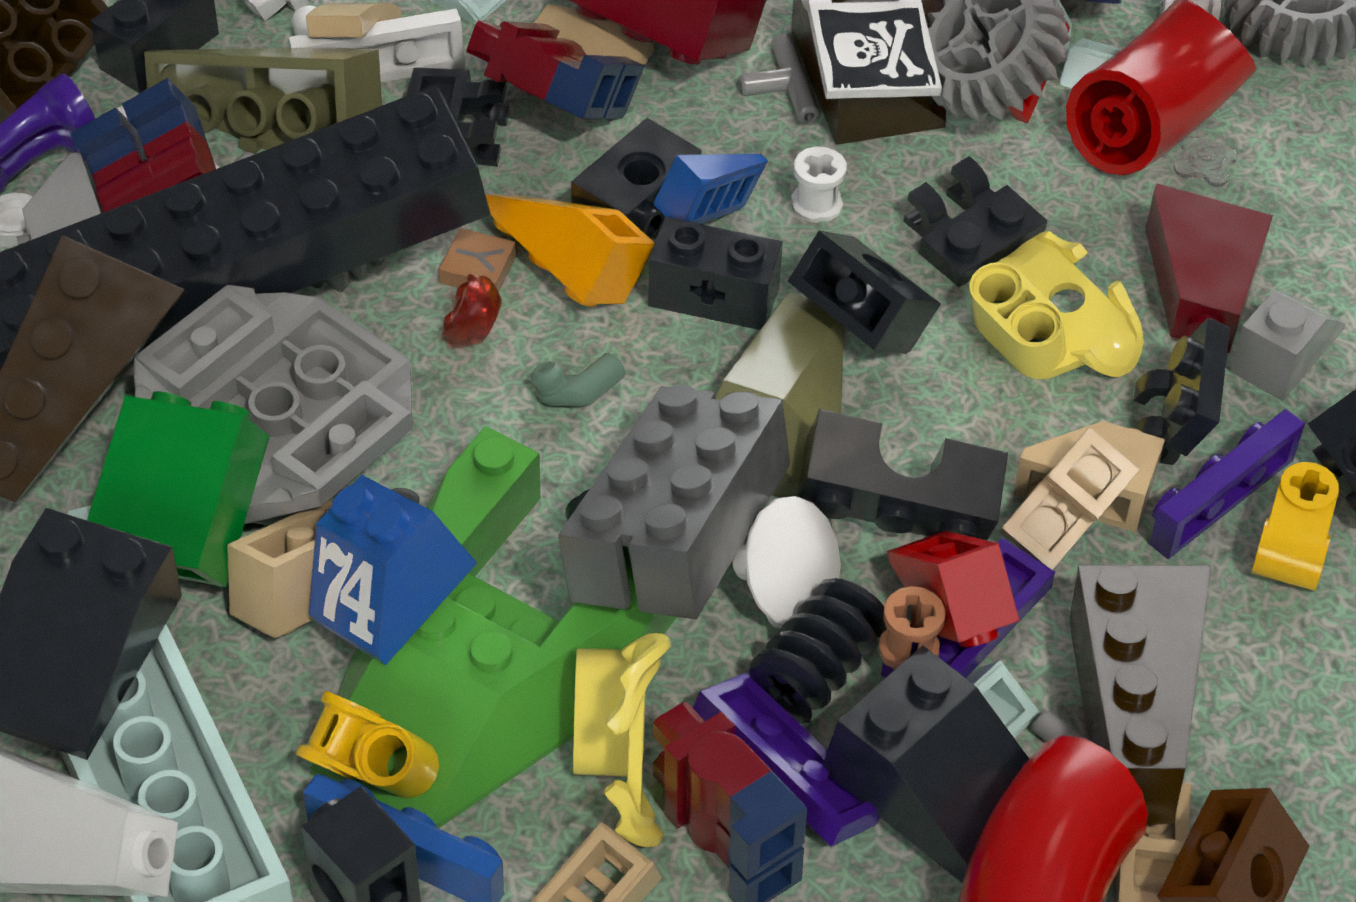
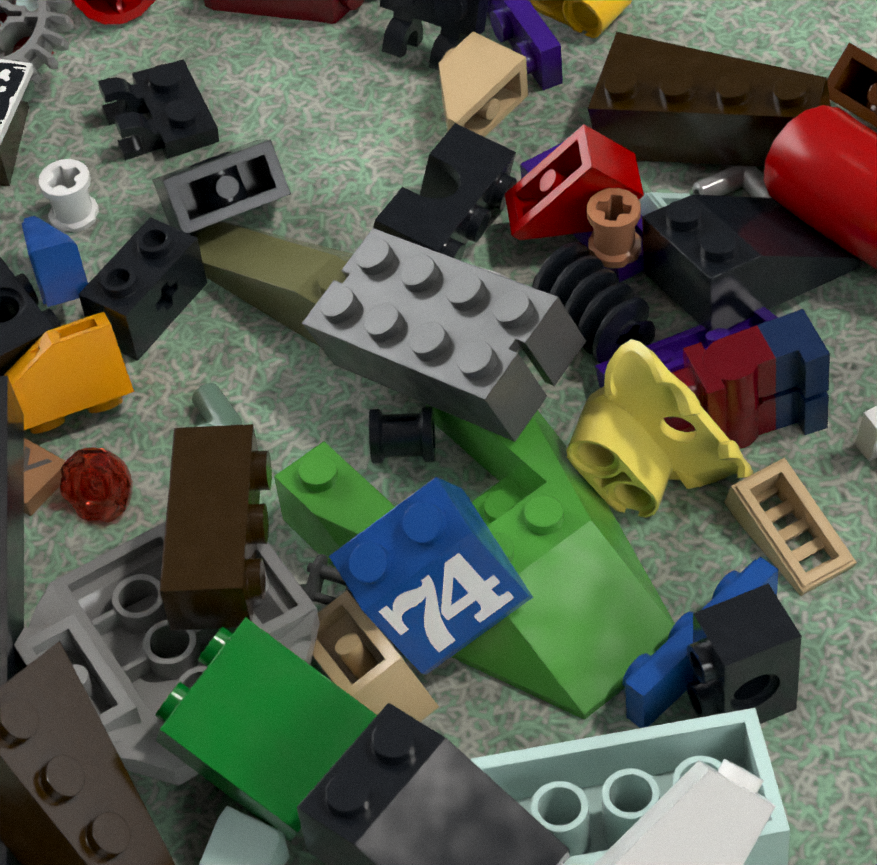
camera: 65 degrees left, 0 degrees up
(360, 745) = (599, 647): yellow piece -> none
(370, 375) = (214, 527): none -> dark brown brick
(1069, 499) = (503, 97): tan slope -> none
(1098, 334) = (321, 61): light yellow piece -> none

